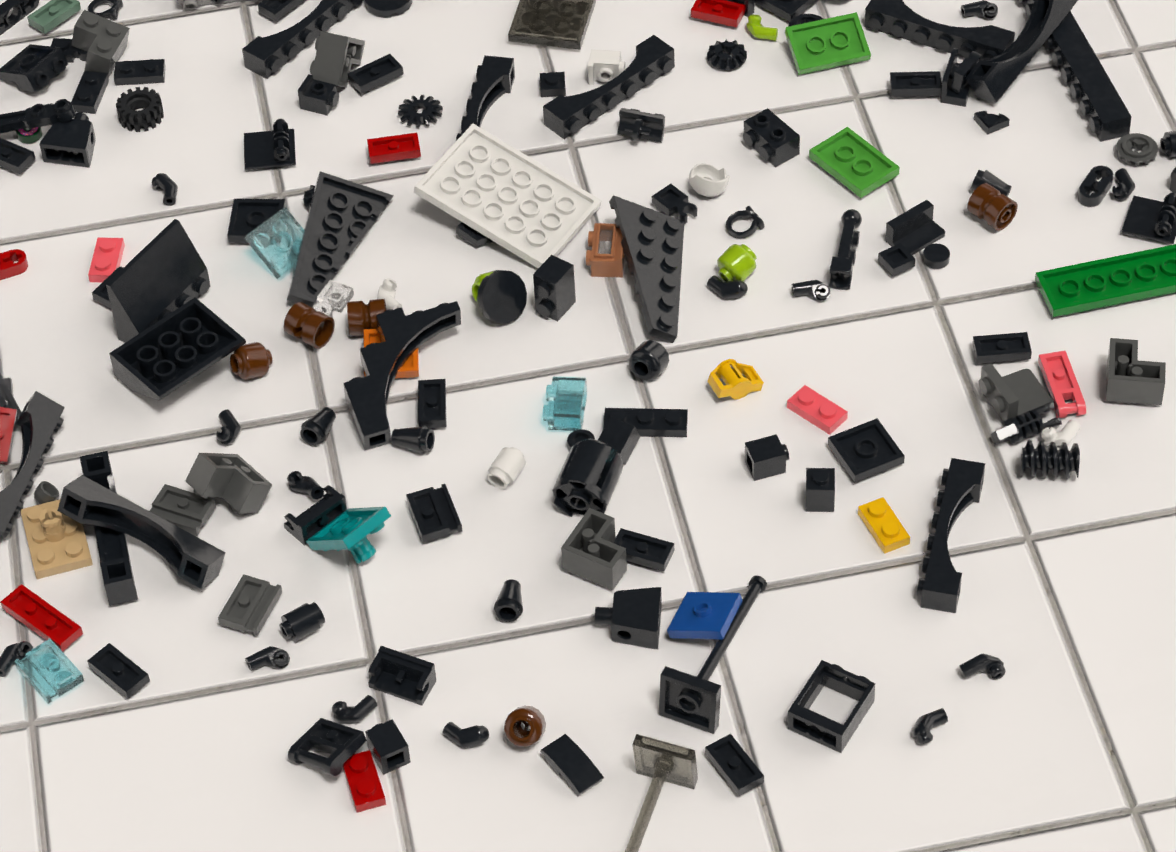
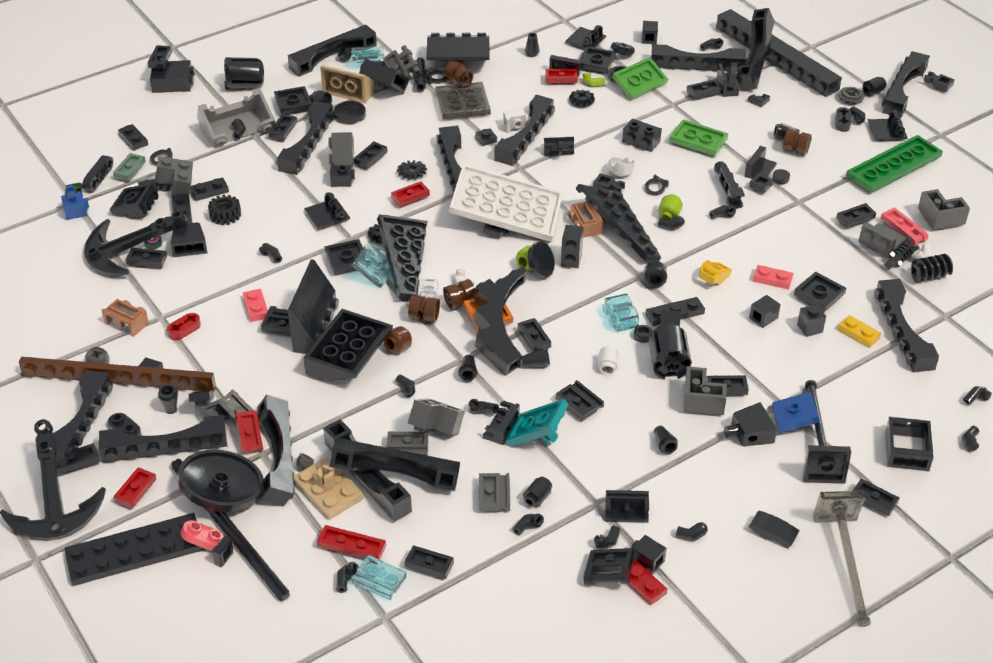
camera: 25 degrees left, 5 degrees down
(521, 735) = (737, 510): reddish brown head -> none

